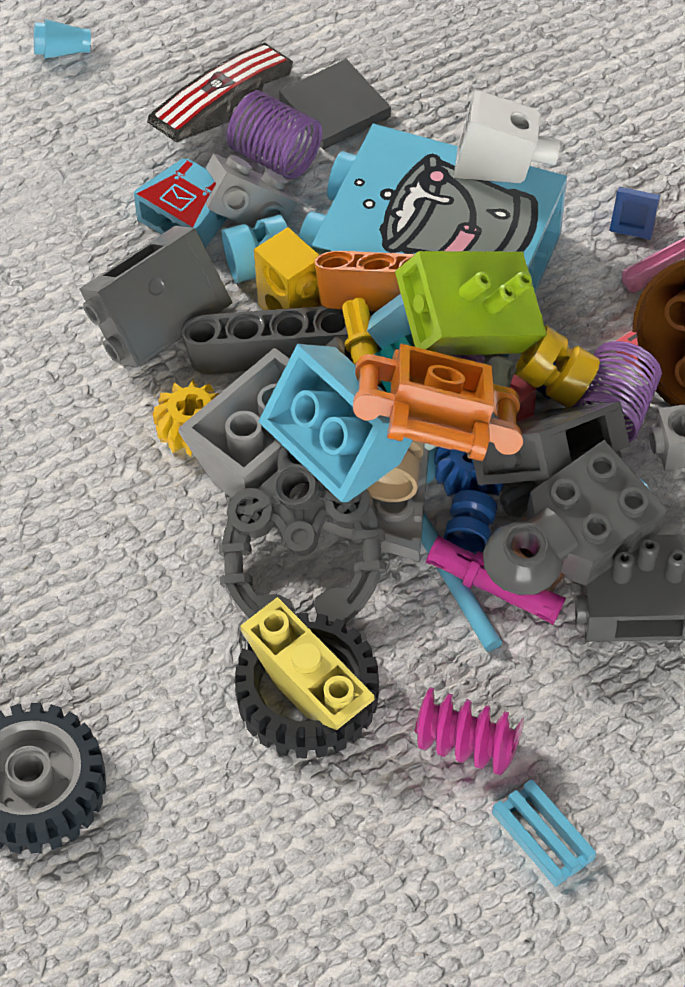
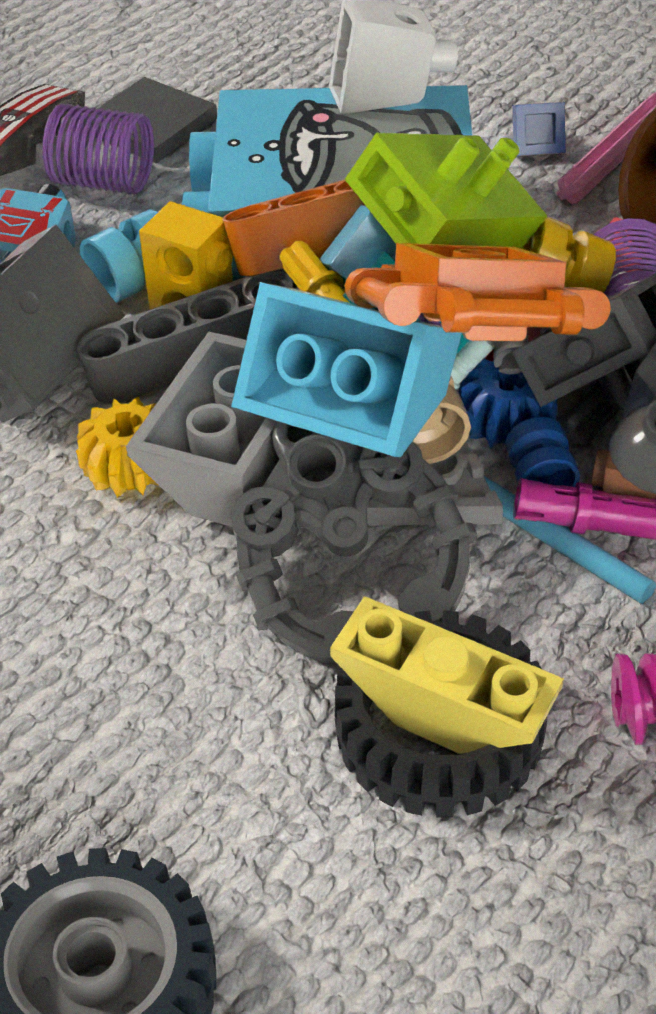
camera: 20 degrees left, 10 degrees down
(246, 194) = (89, 204): light grey bracket -> none

